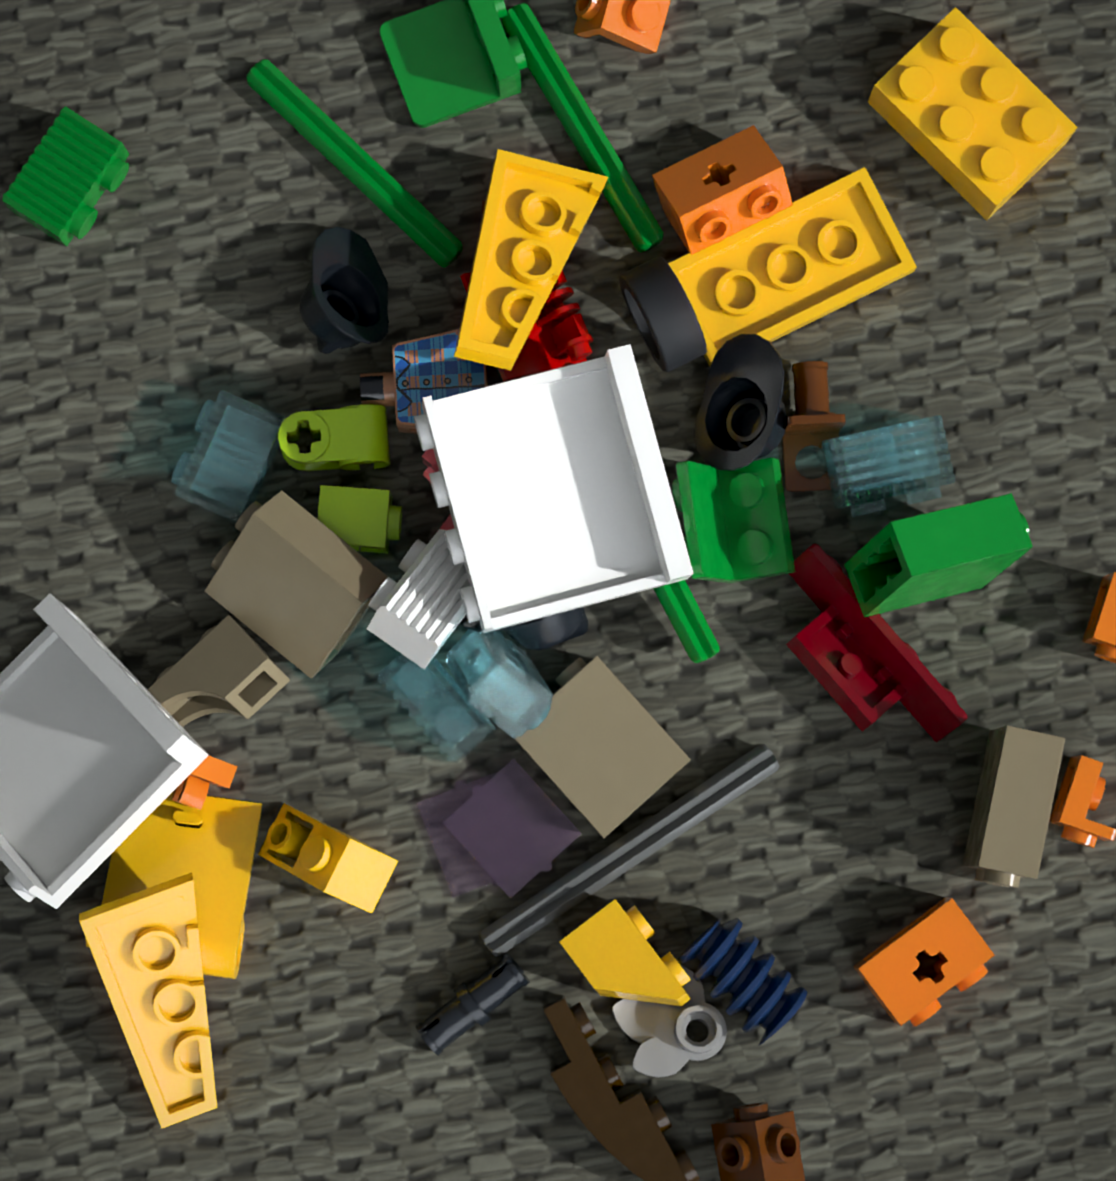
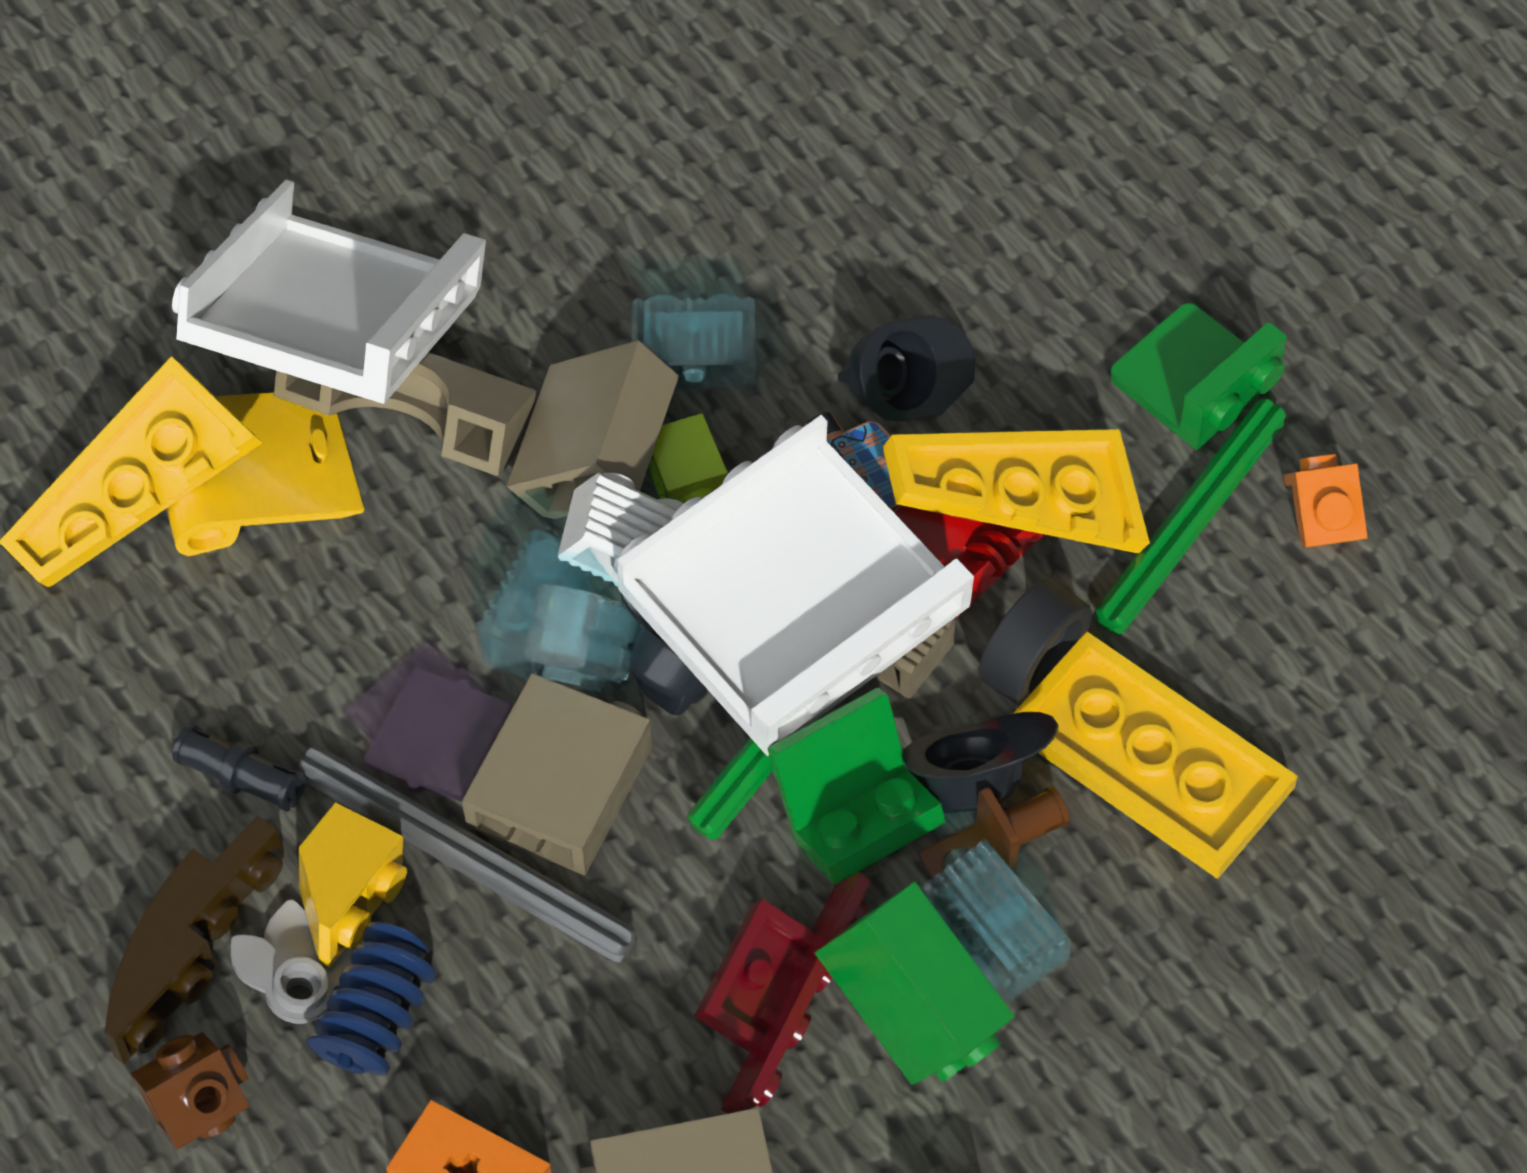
camera: 65 degrees right, 25 degrees down
(67, 177) = (894, 110): green brick -> none
(195, 787) = (364, 431): orange tile -> none
(327, 858) = (331, 578): yellow slope -> none
(347, 438) = (751, 408): lime piece -> none
(354, 163) = (1047, 325): green axle -> none
(722, 189) = (1195, 650): orange brick -> none
(971, 113) = (1411, 853): yellow brick -> none

